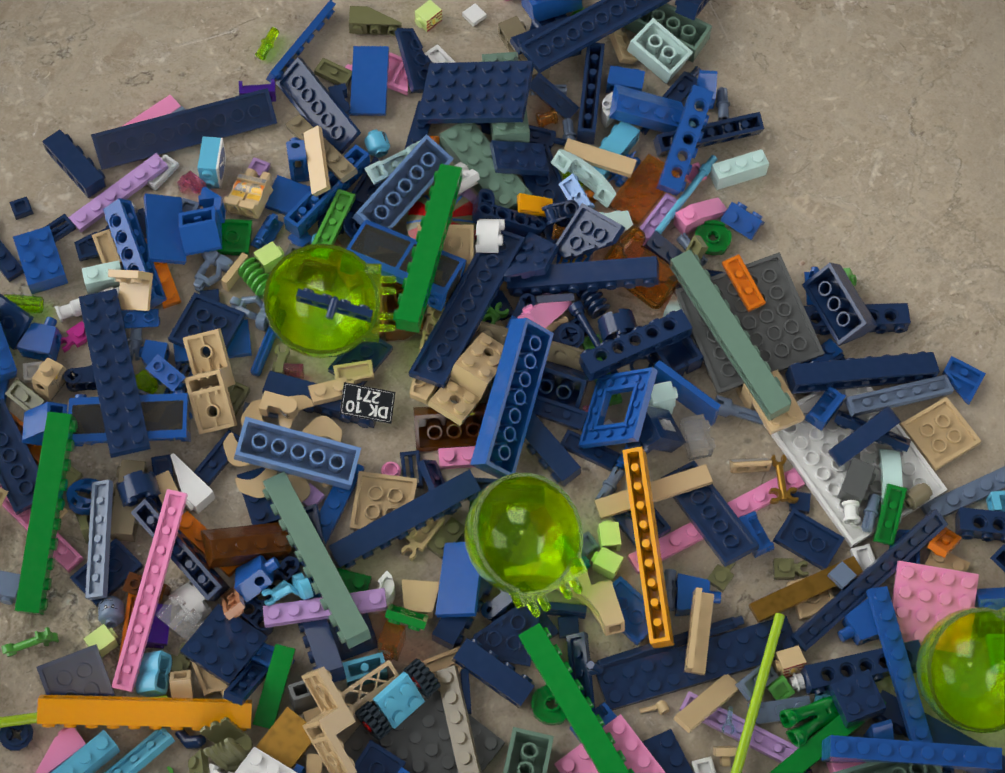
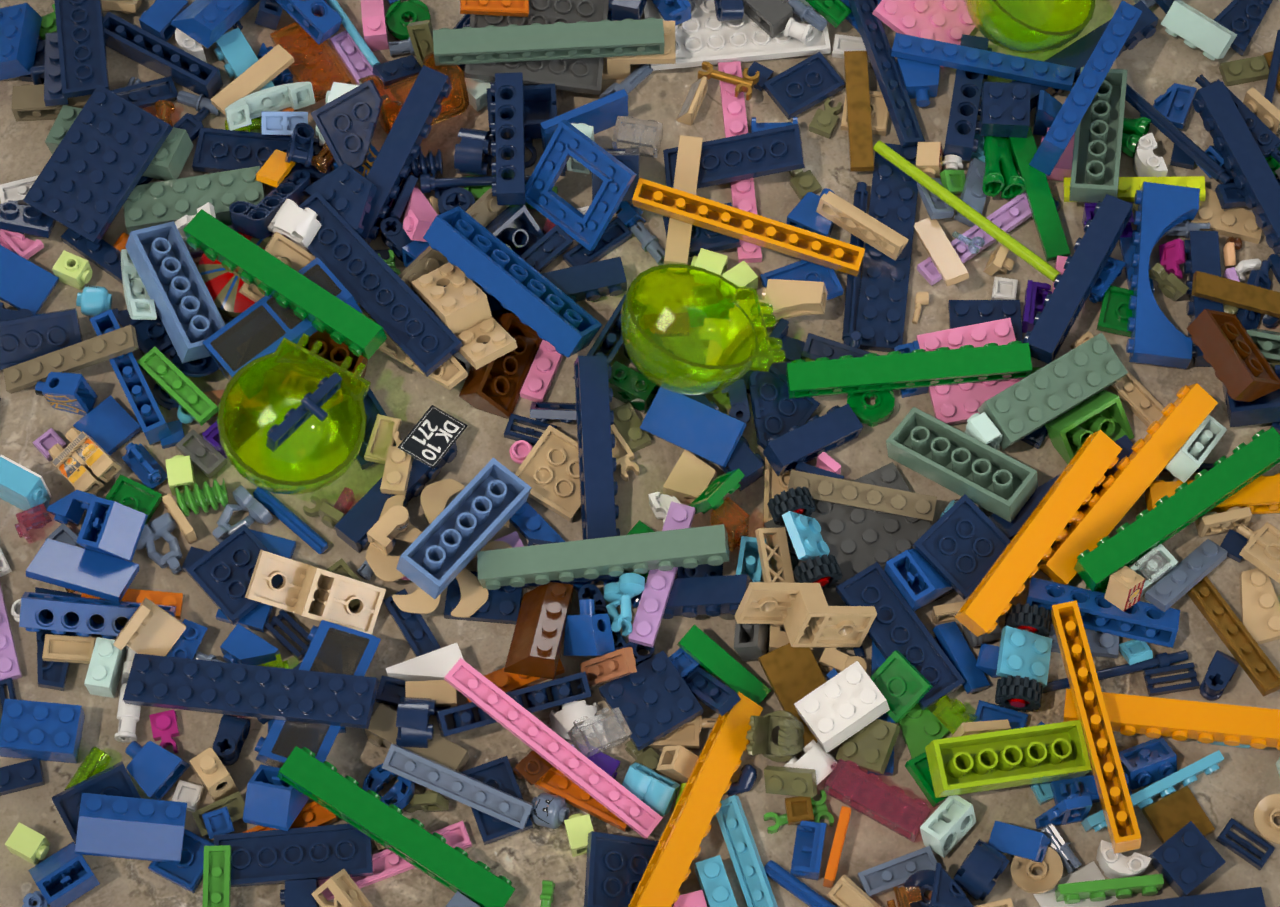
camera: 60 degrees left, 0 degrees up
(16, 398) = (218, 822): none -> blue tile
(166, 373) = (283, 633): blue hinge -> none
(316, 161) = (91, 365): tan tile -> none
(395, 119) = (72, 270): none -> yellowish green brick
(477, 695) = (827, 463): none -> bright pink tile
(519, 158) = (207, 158): dark blue plate -> none
(841, 575) = (862, 69): sand blue tile -> none

